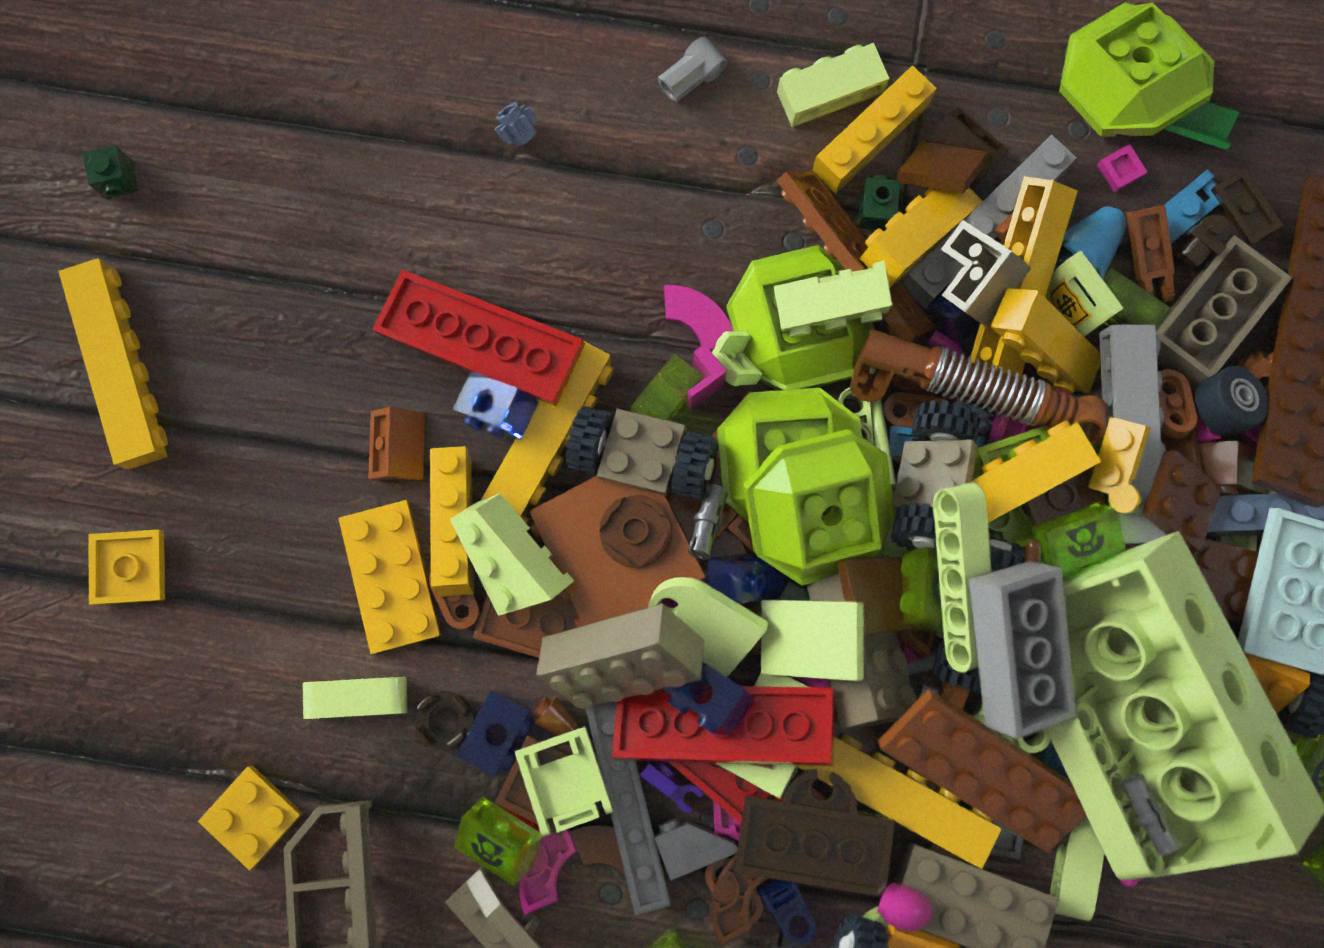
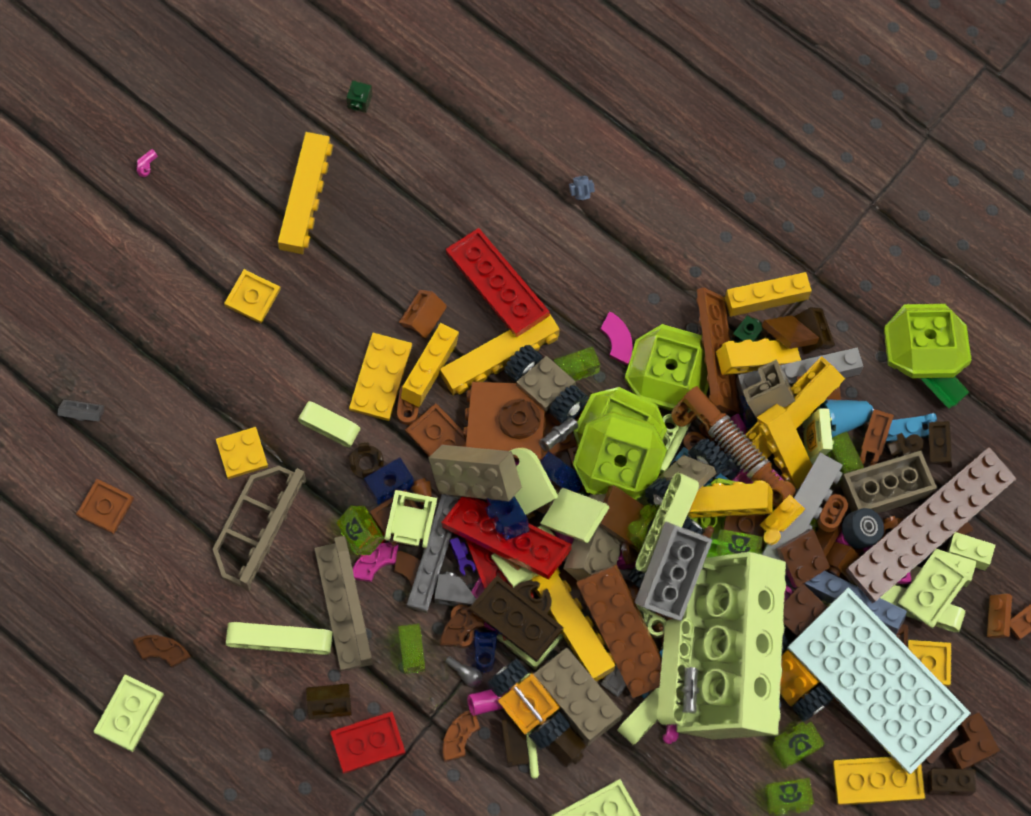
camera: 25 degrees right, 10 degrees down
(496, 406) = (485, 321): clear blue brick -> none
(506, 556) = (448, 394): yellowish green wedge -> none
(699, 64) = (698, 210): light grey piece -> none
(712, 376) = (600, 372): dark pink panel -> none
(730, 355) = (620, 367): yellowish green bracket -> none
(832, 84) = (760, 259): yellowish green brick -> none
(833, 300) = (686, 362): yellowish green wedge -> none
(905, 907) = (542, 668): dark pink piece -> none
(1122, 168) = (889, 388): dark pink plate -> none

